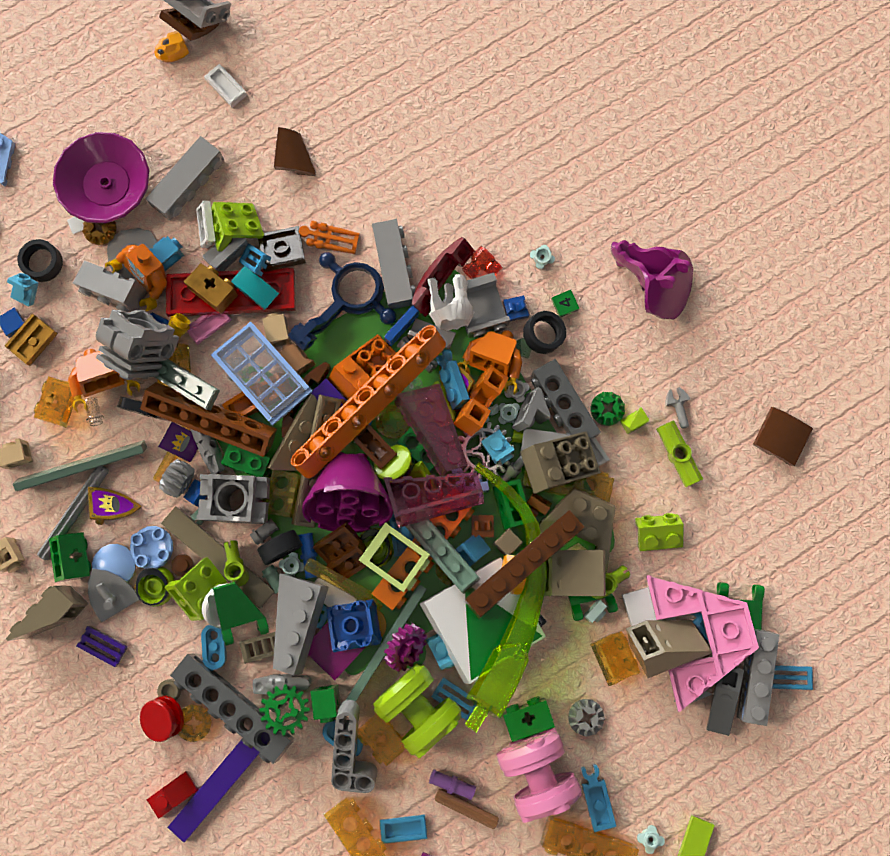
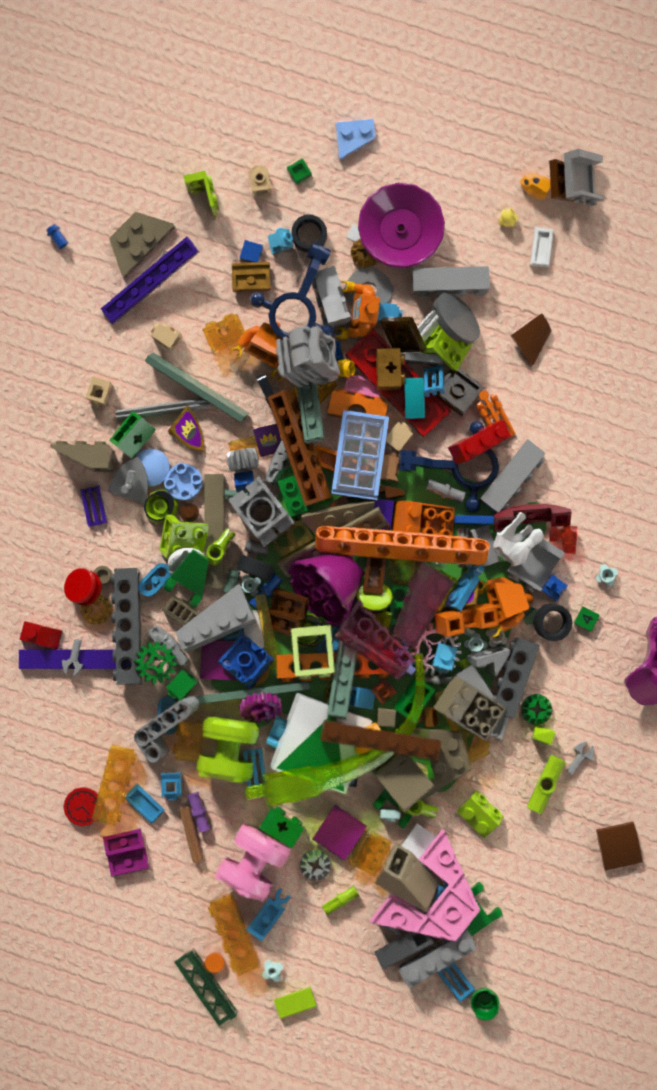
camera: 55 degrees right, 5 degrees up
(61, 264) = (318, 255): none -> dark blue piece
(176, 91) = (508, 218): none -> light yellow plate
(191, 249) = (403, 334): none -> dark brown plate
(201, 350) = (342, 401): none -> orange arch
(219, 197) = (456, 318): none -> dark grey tile
(219, 783) = (73, 658): none -> light grey bar
(338, 263) = (479, 442): none -> red arch
(356, 329) = (445, 491): none -> light grey pin
(404, 779) = (171, 777): none -> dark azure window
(575, 671) = (339, 832): none -> magenta slope
(636, 721) = (340, 900): none -> lime axle
(833, 668) = (485, 1004): none -> green hair

